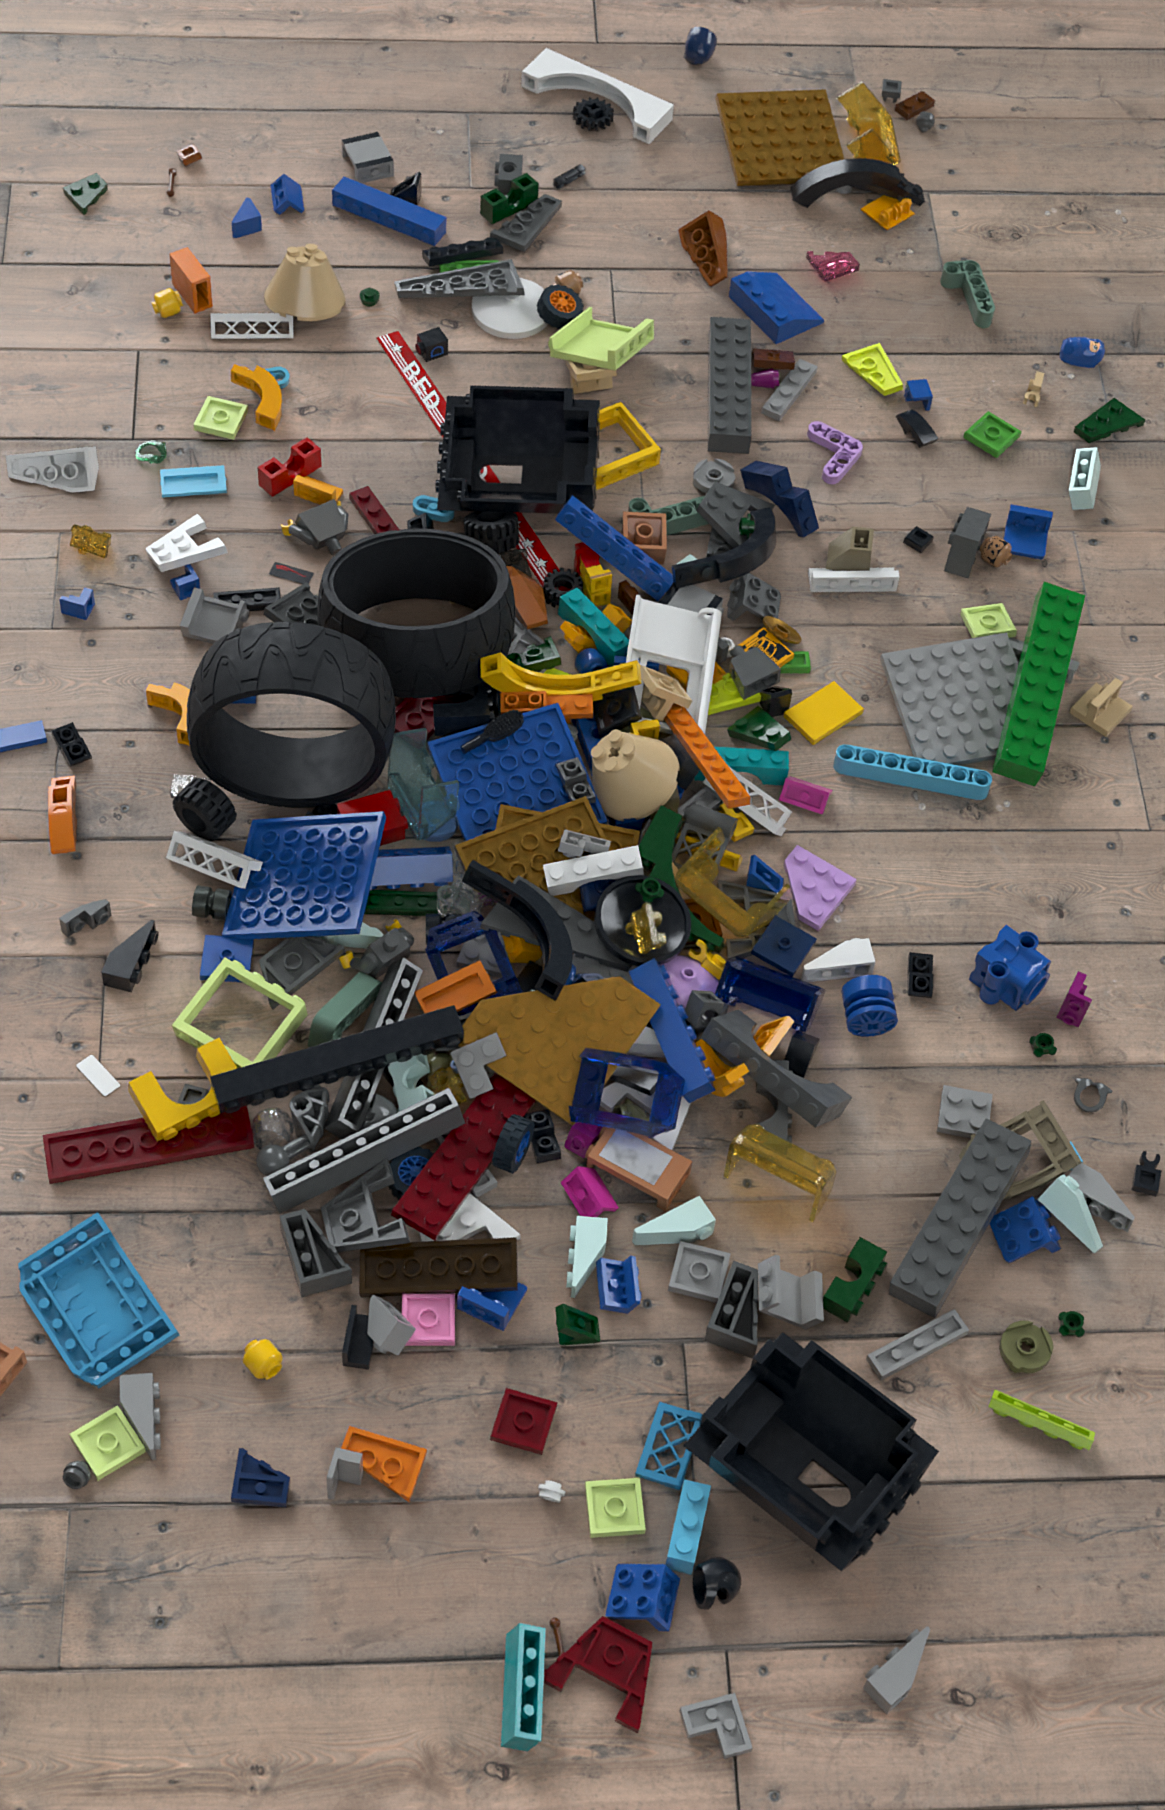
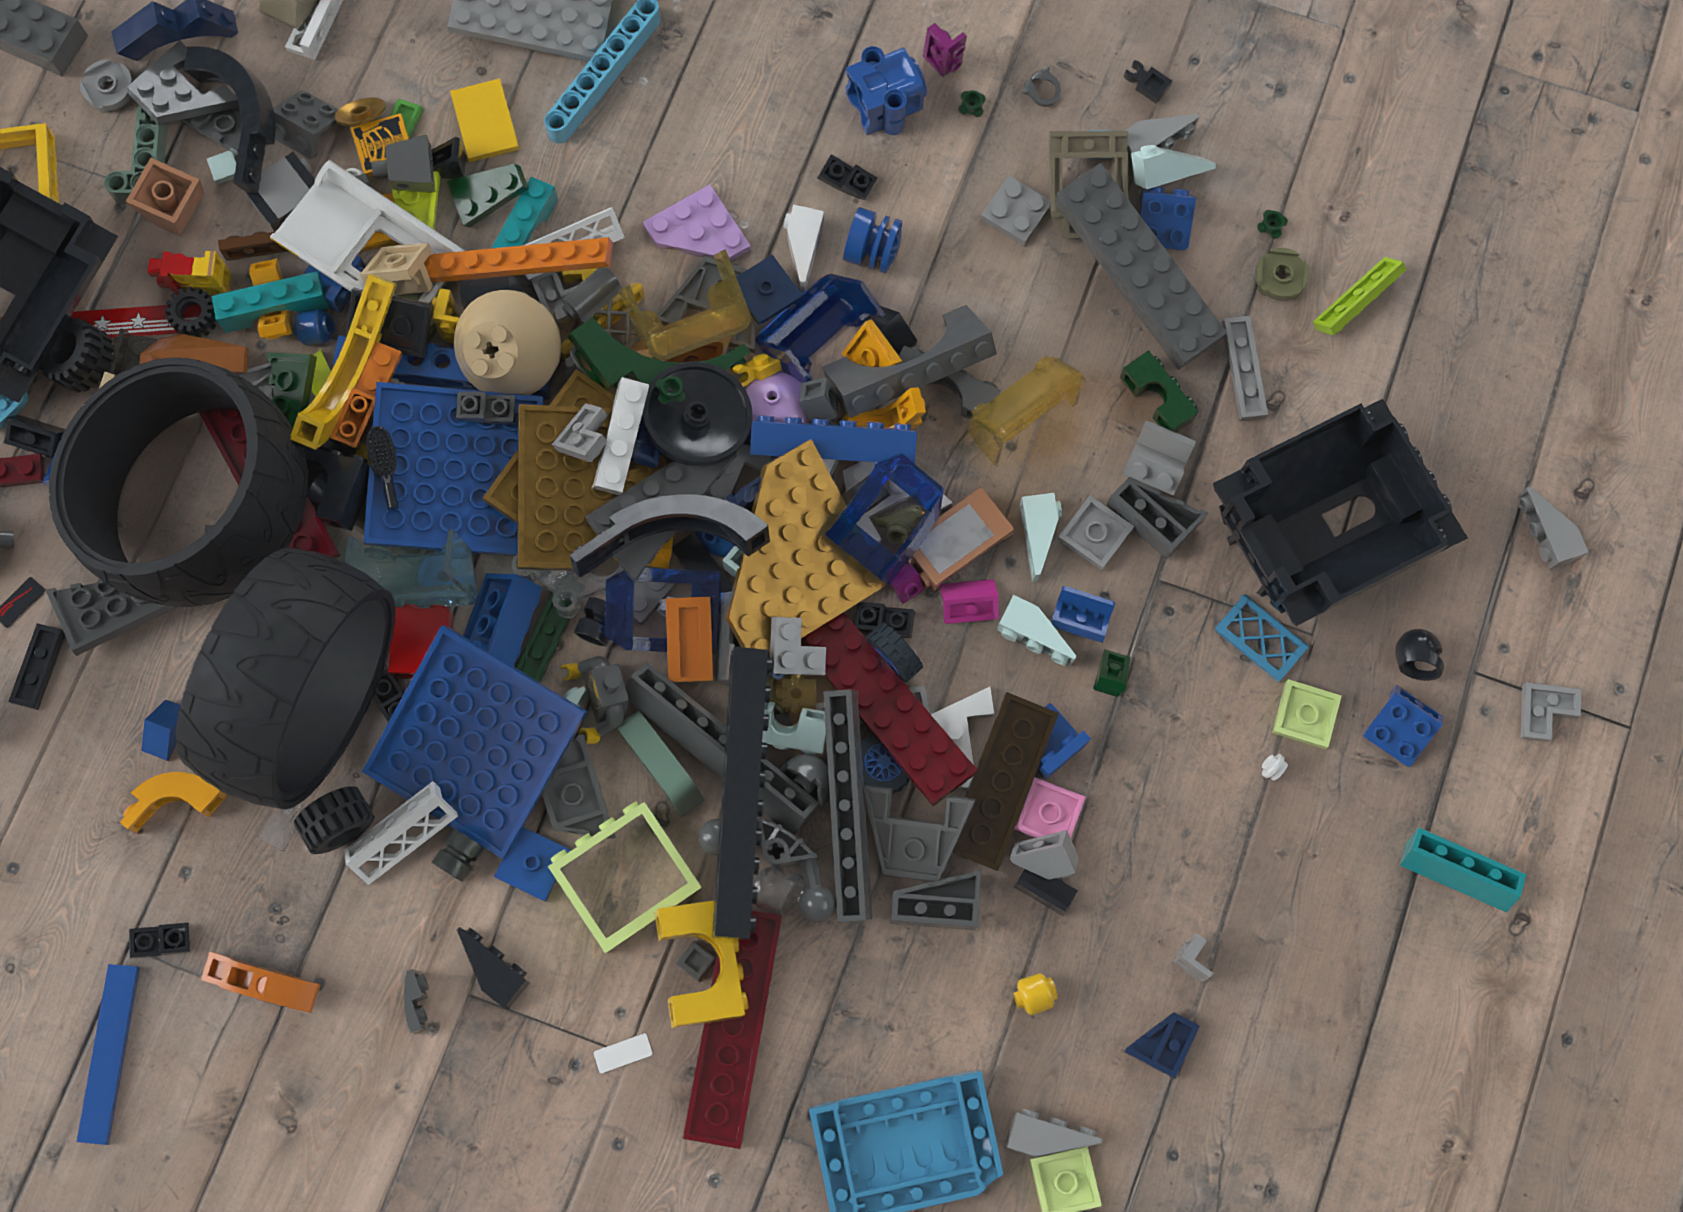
camera: 65 degrees left, 20 degrees up
(211, 618) = (53, 714): light grey panel -> none
(387, 1460) = (1184, 911): orange wing -> none
(523, 1421) = (1192, 763): dark red plate -> none
(555, 1624) = (1446, 825): reddish brown hinge -> none
(613, 1657) = (1454, 776): dark red wing -> none
(615, 548) = (177, 232): blue brick -> none
(643, 926) = (717, 414): clear yellow hips -> none
(688, 1526) = (1371, 664): medium azure arch -> none
(746, 526) = (209, 82): dark green plate -> none
(762, 876) = (671, 274): blue slope -> none
(805, 794) = (583, 184): dark pink panel -> none

